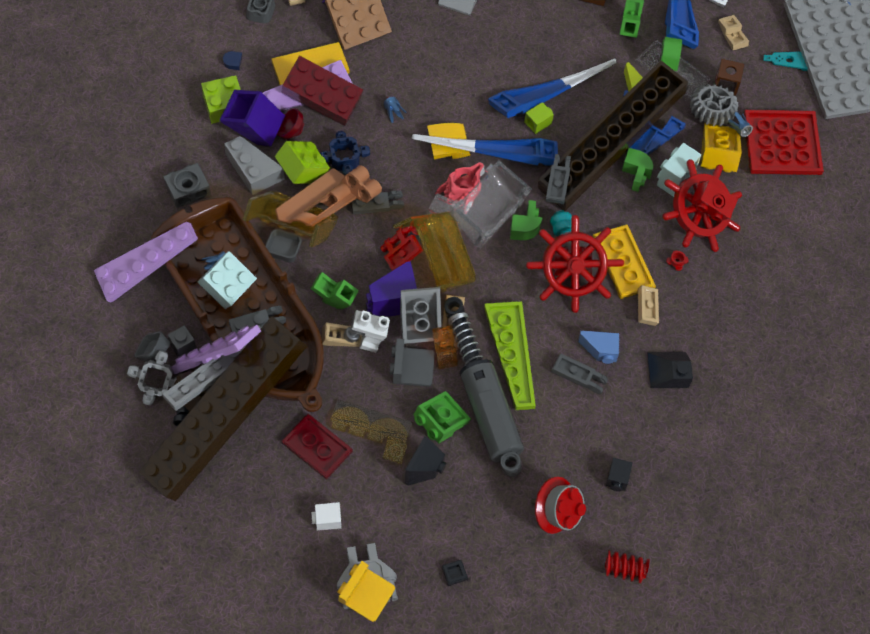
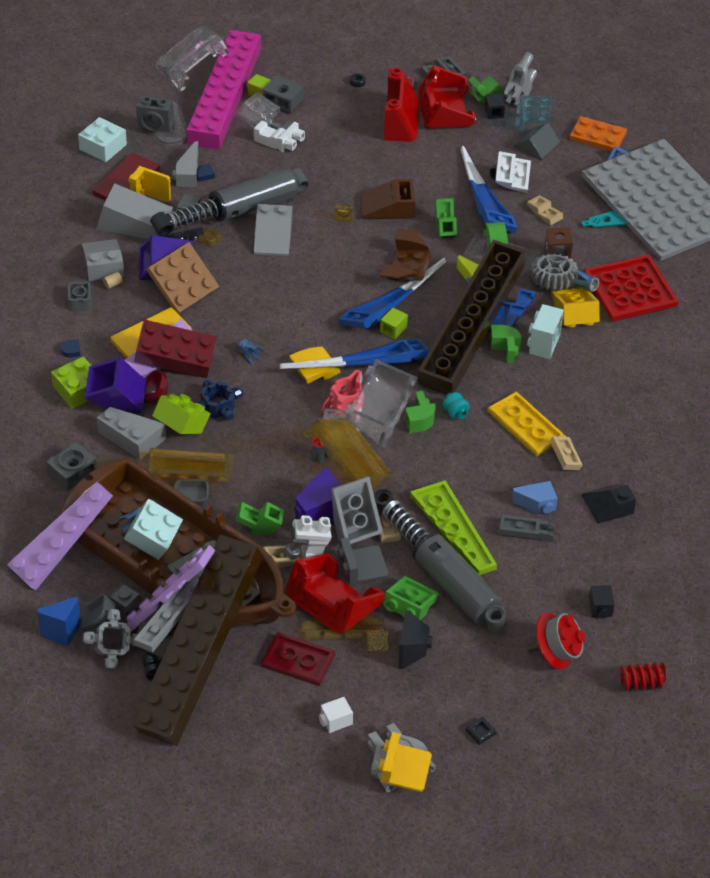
camera: 15 degrees left, 15 degrees down
(116, 345) = (60, 620): none -> blue slope
(332, 190) = (223, 434): nougat panel -> none
(367, 390) = (328, 598): none -> red windscreen
(379, 203) = (266, 434): dark grey hinge -> none
(404, 252) = (312, 467): red plate -> none
(444, 347) = (388, 539): clear orange slope -> none
(558, 181) = (439, 365): dark grey hinge -> none
(574, 263) = (471, 435): red piece -> none
(580, 53) = (410, 259): none -> reddish brown piece
(680, 256) = (576, 409): red plate -> none
(710, 198) = (586, 348): red piece -> none

